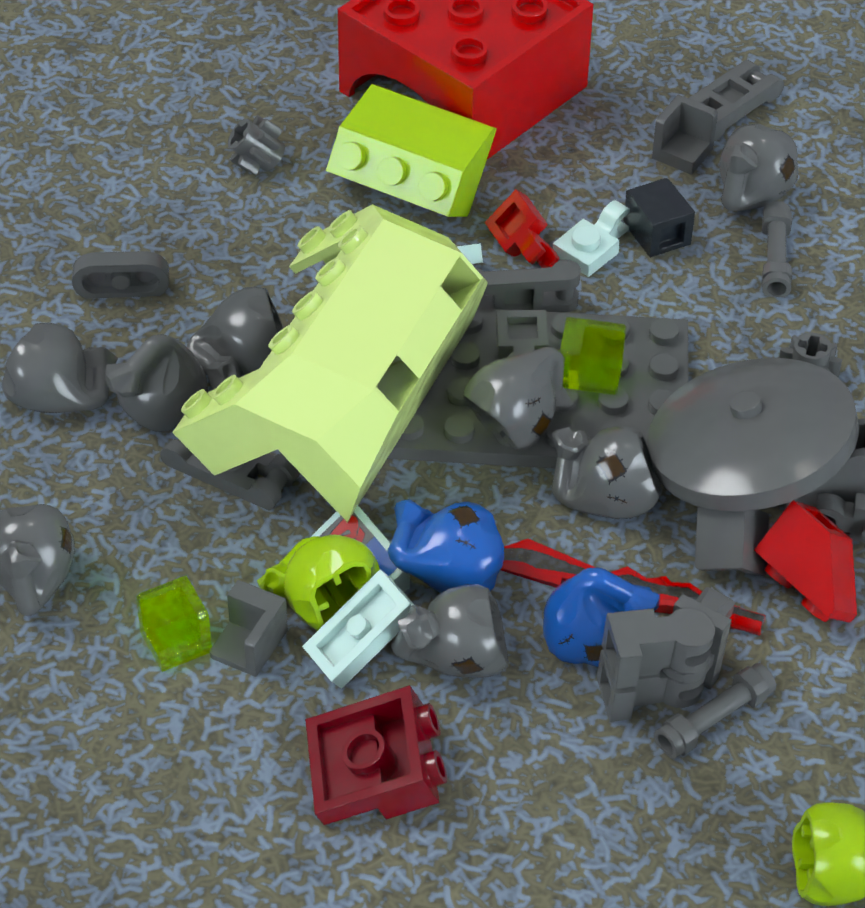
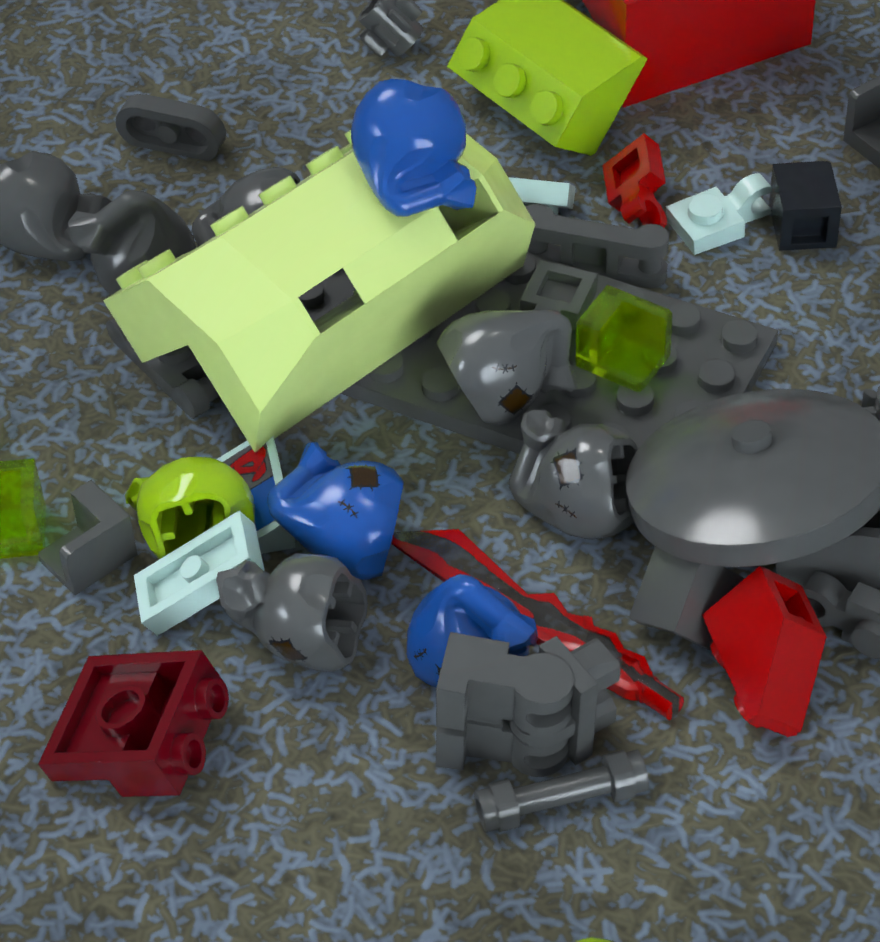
camera: 25 degrees right, 0 degrees up
(410, 245) = (411, 147): none -> blue piece

